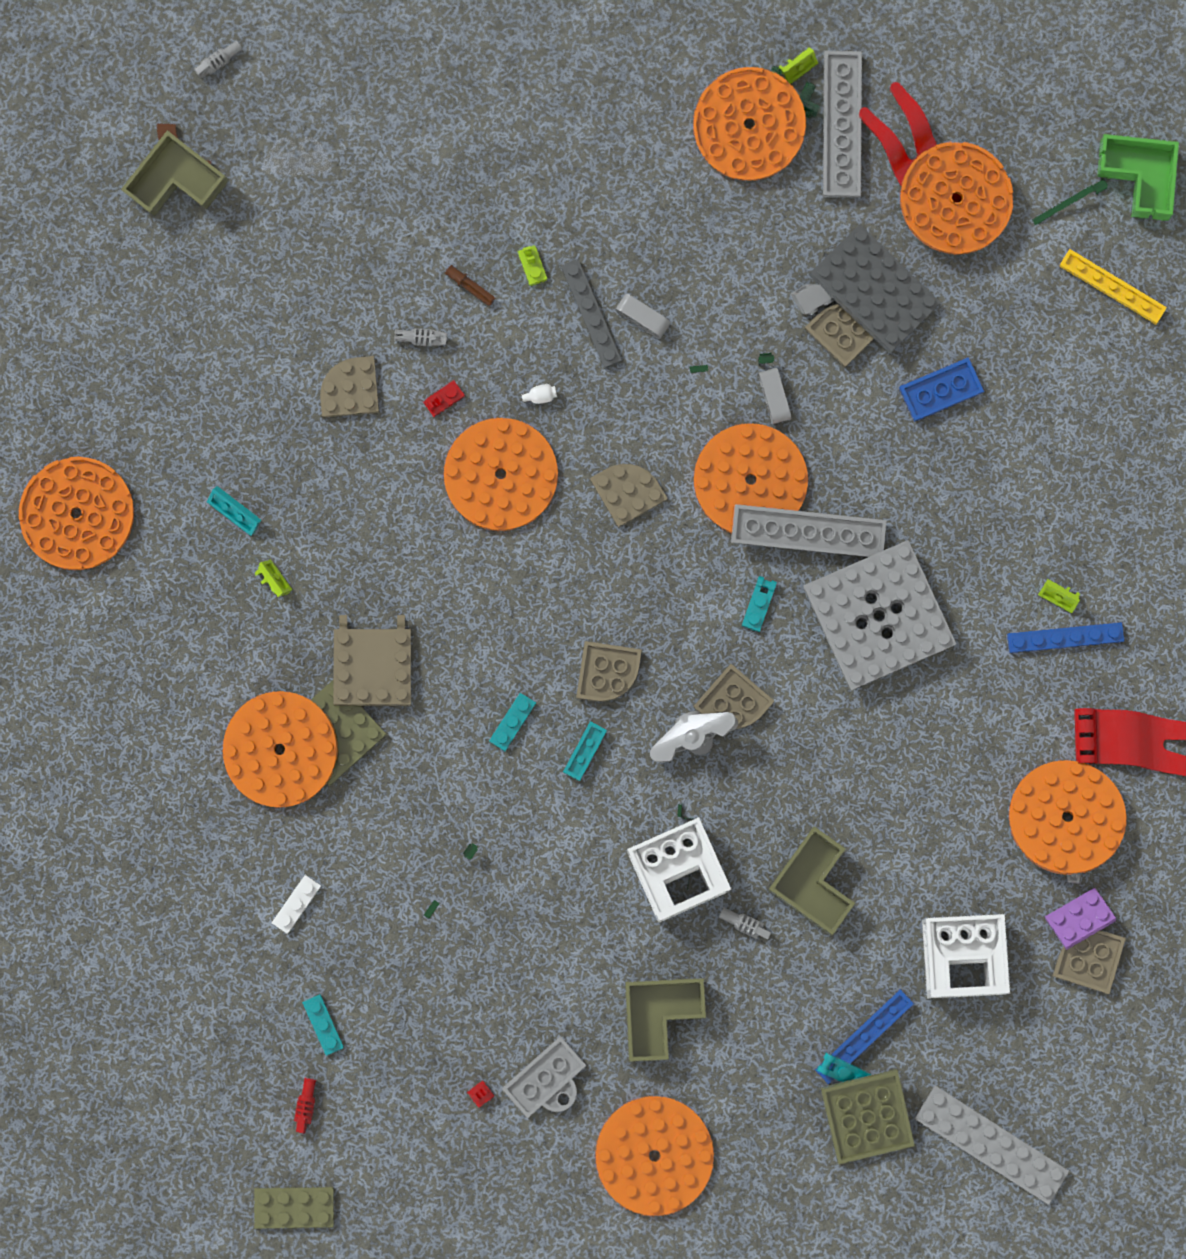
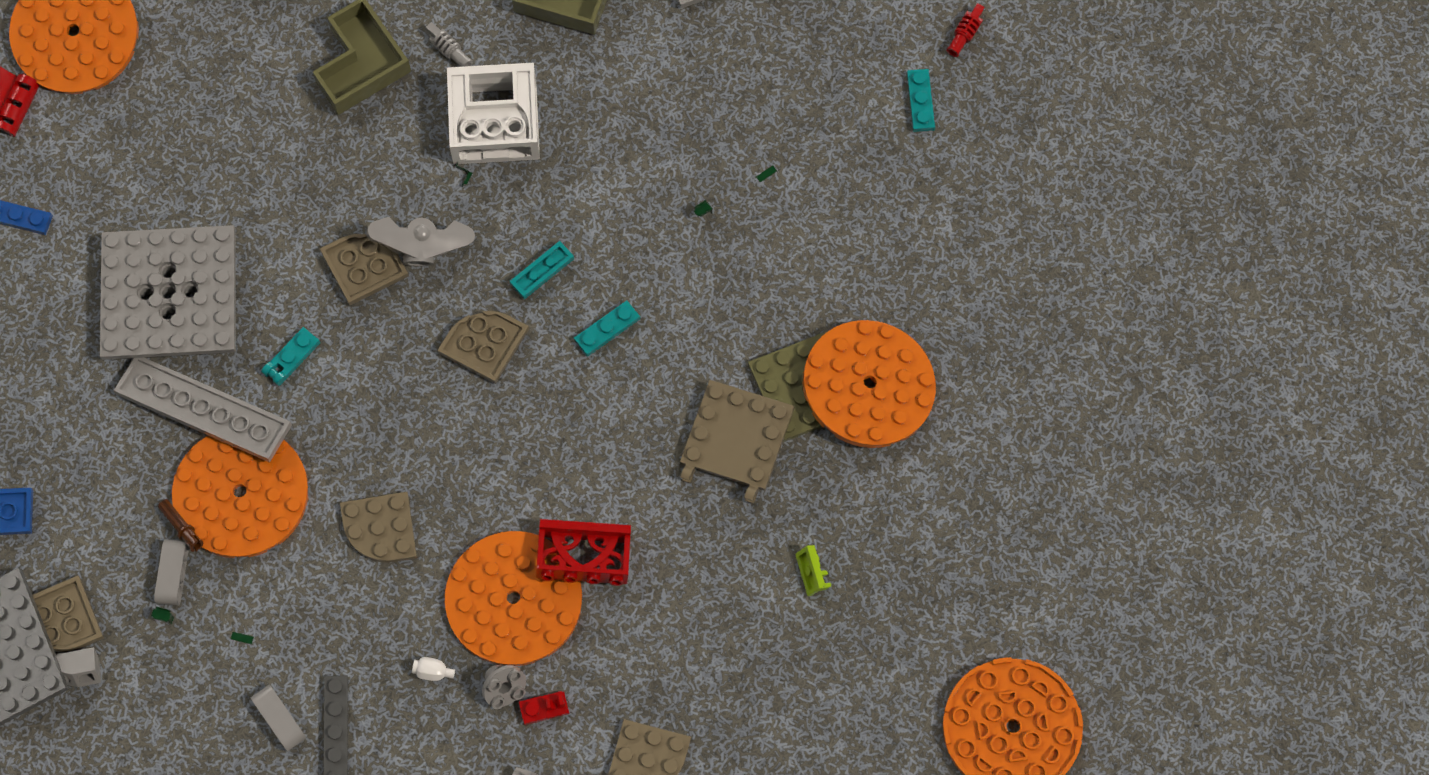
camera: 160 degrees left, 10 degrees down
(234, 510) = (830, 663): teal plate -> none
(296, 904) = (907, 225): white plate -> none
(443, 547) = (574, 571): none -> red fence
(480, 400) = (503, 685): none -> light grey plate
(787, 435) = (185, 531): none -> reddish brown axle

